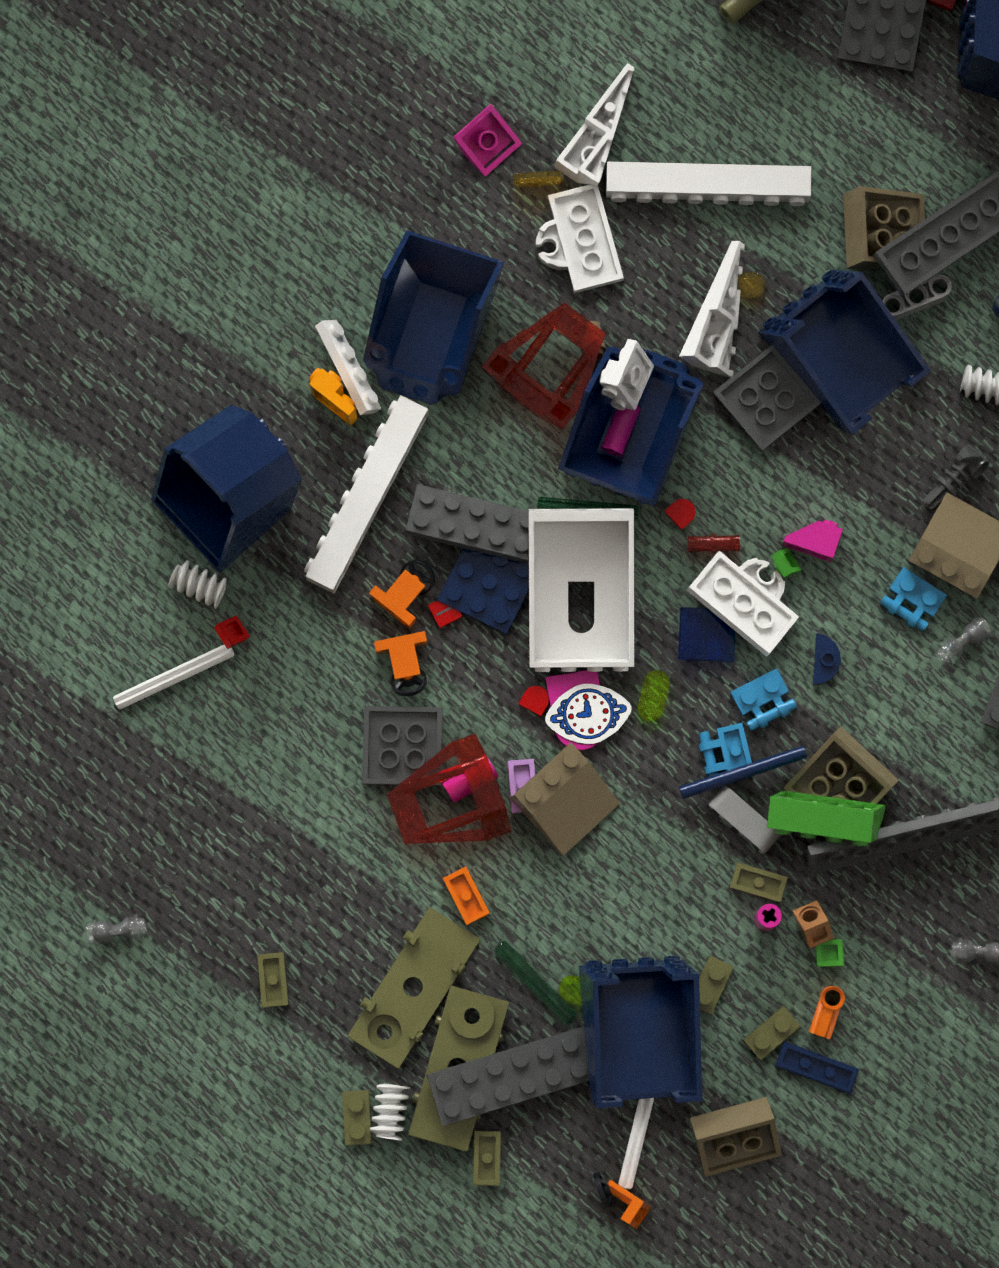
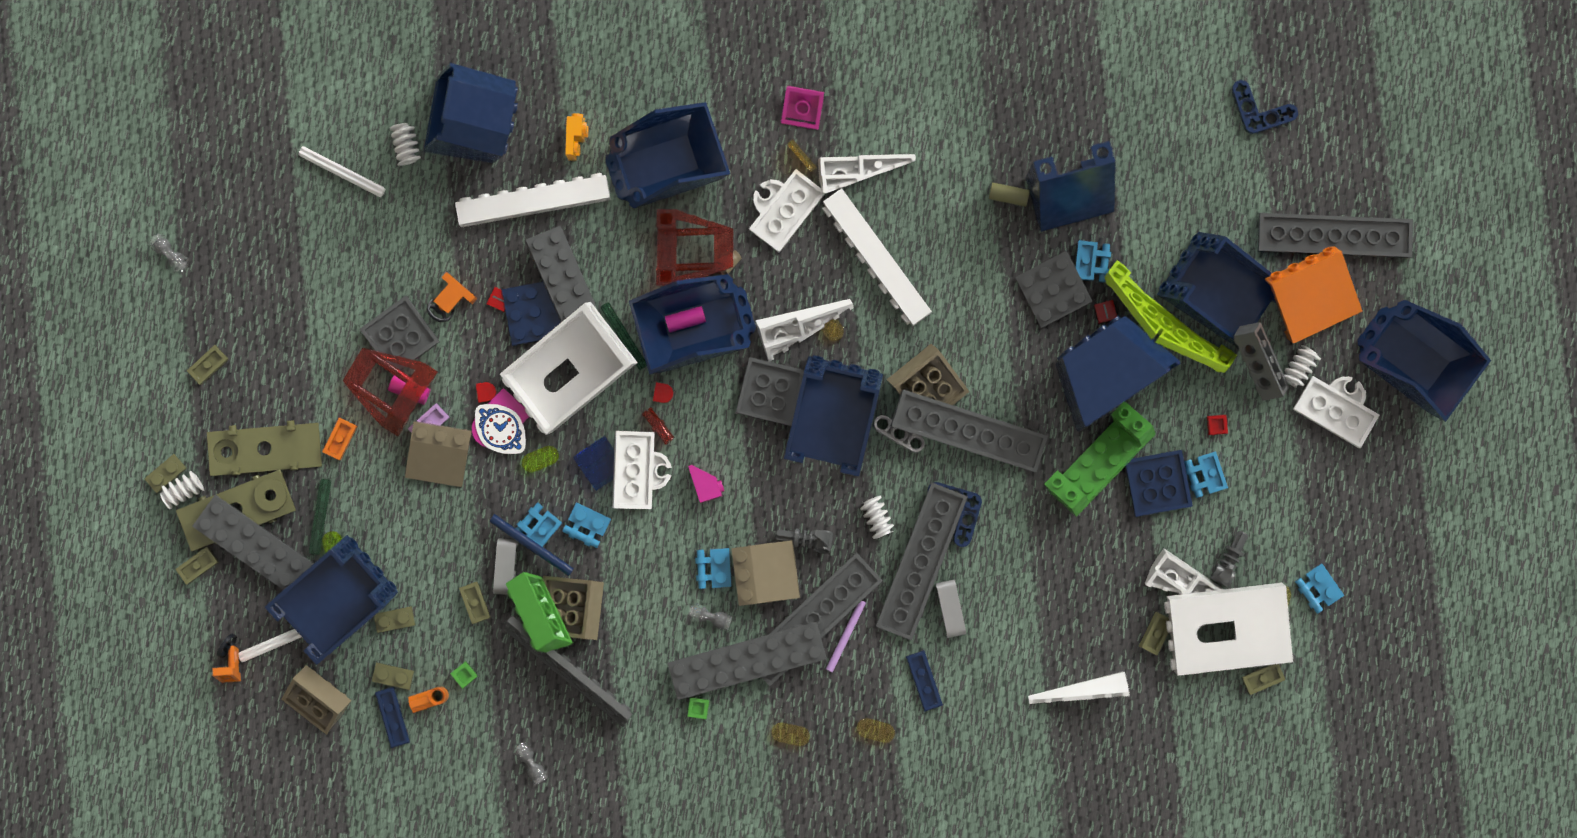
camera: 55 degrees right, 5 degrees up
(231, 632) = (392, 185): red tile -> none
(348, 366) = (601, 131): white plate -> none
(404, 592) = (491, 267): orange piece -> none
(626, 378) = (713, 300): white plate -> none
(759, 917) = (452, 628): dark pink piece -> none
(785, 563) = (678, 477): bright green plate -> none
(813, 924) = (472, 652): medium nougat brick -> none
(826, 659) = (638, 544): dark blue plate -> none

